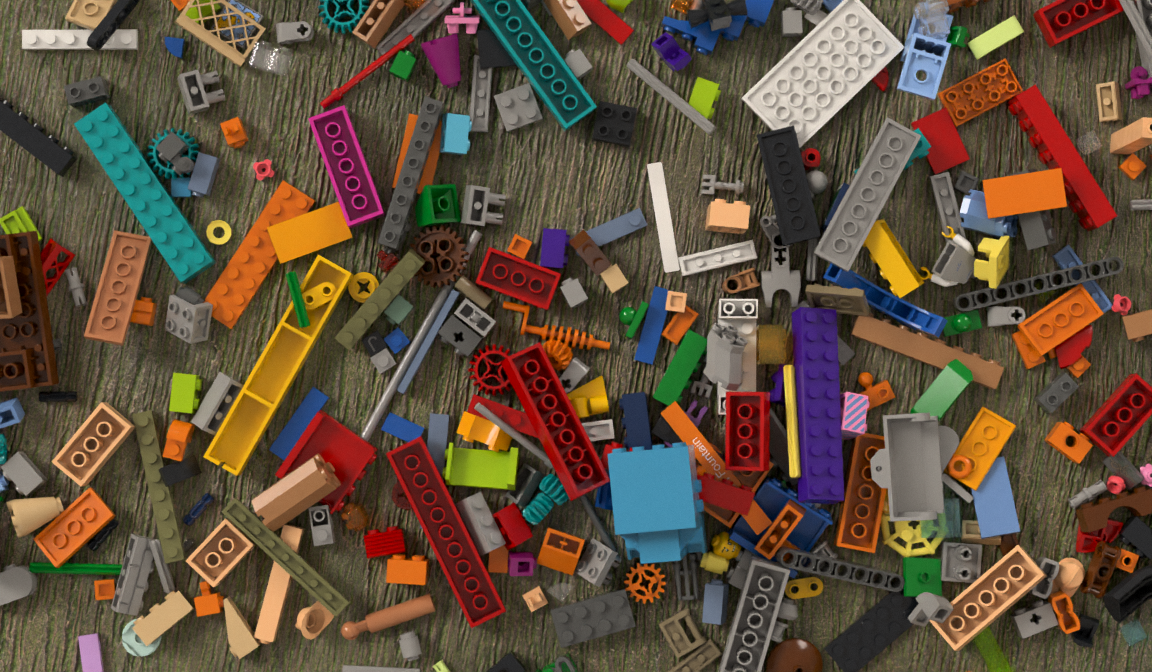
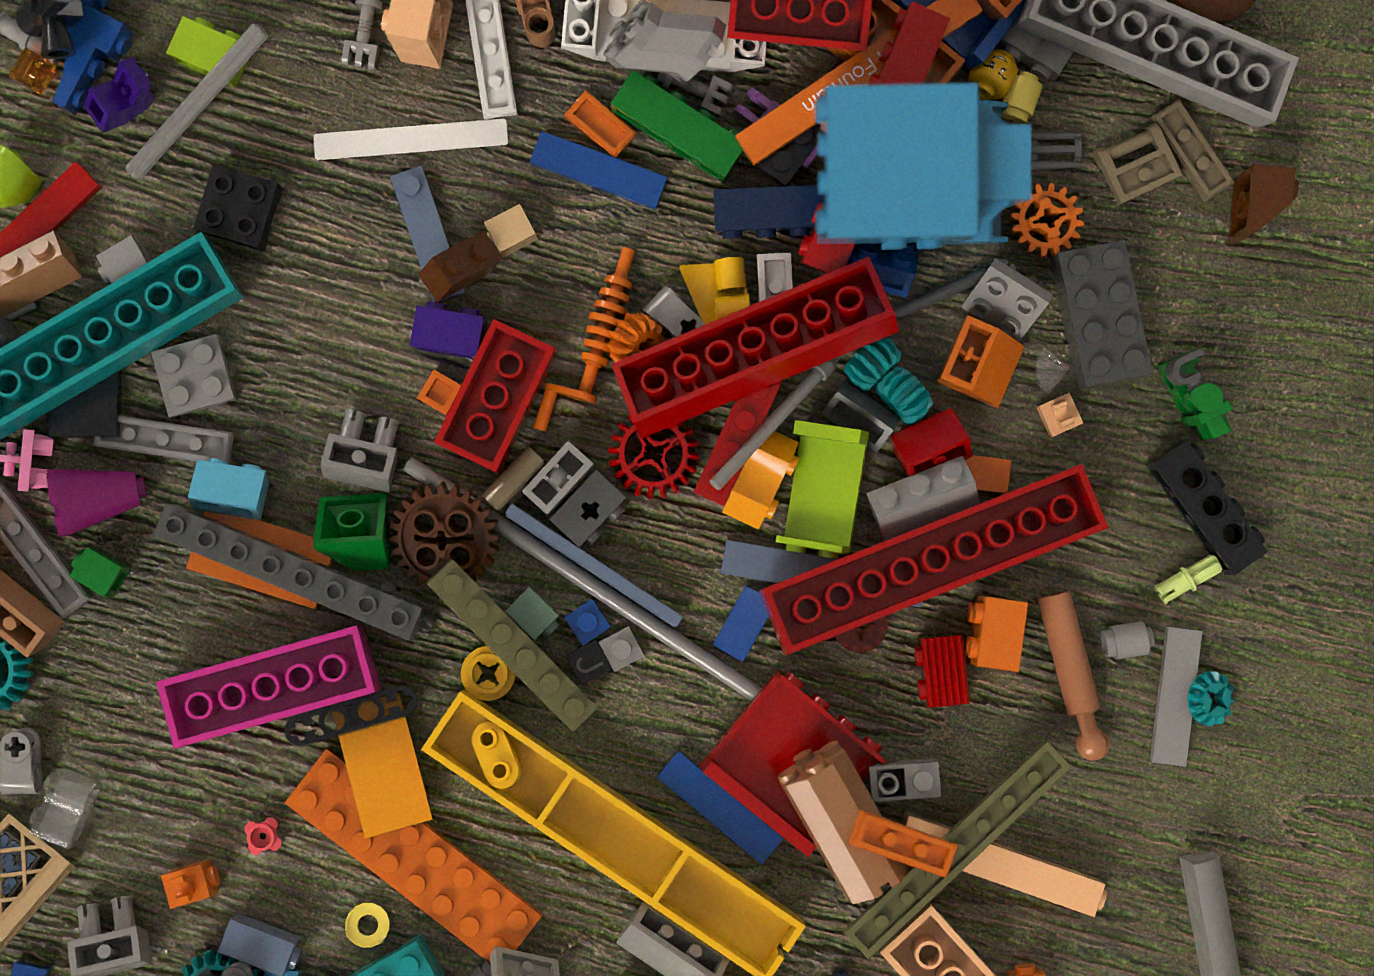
camera: 80 degrees left, 0 degrees up
(239, 632) = (1079, 942): tan slope -> none
(286, 525) = (903, 843): none -> orange tile
(297, 298) = (498, 792): green axle -> none
(313, 620) = (1071, 809): light nougat piece -> none
(330, 215) = (352, 719): none -> black beam
(337, 93) = (139, 693): red bar -> none
(355, 516) = (892, 720): clear orange head -> none
(387, 261) = (445, 627): clear red tile -> none
(521, 569) = (998, 433): magenta brick -> none
(573, 293) = (528, 301): light grey brick -> none
(631, 317) = (583, 202): green tile -> none
(676, 301) = (560, 125): light nougat tile -> none
(715, 602) = (1091, 100): sand blue brick -> none

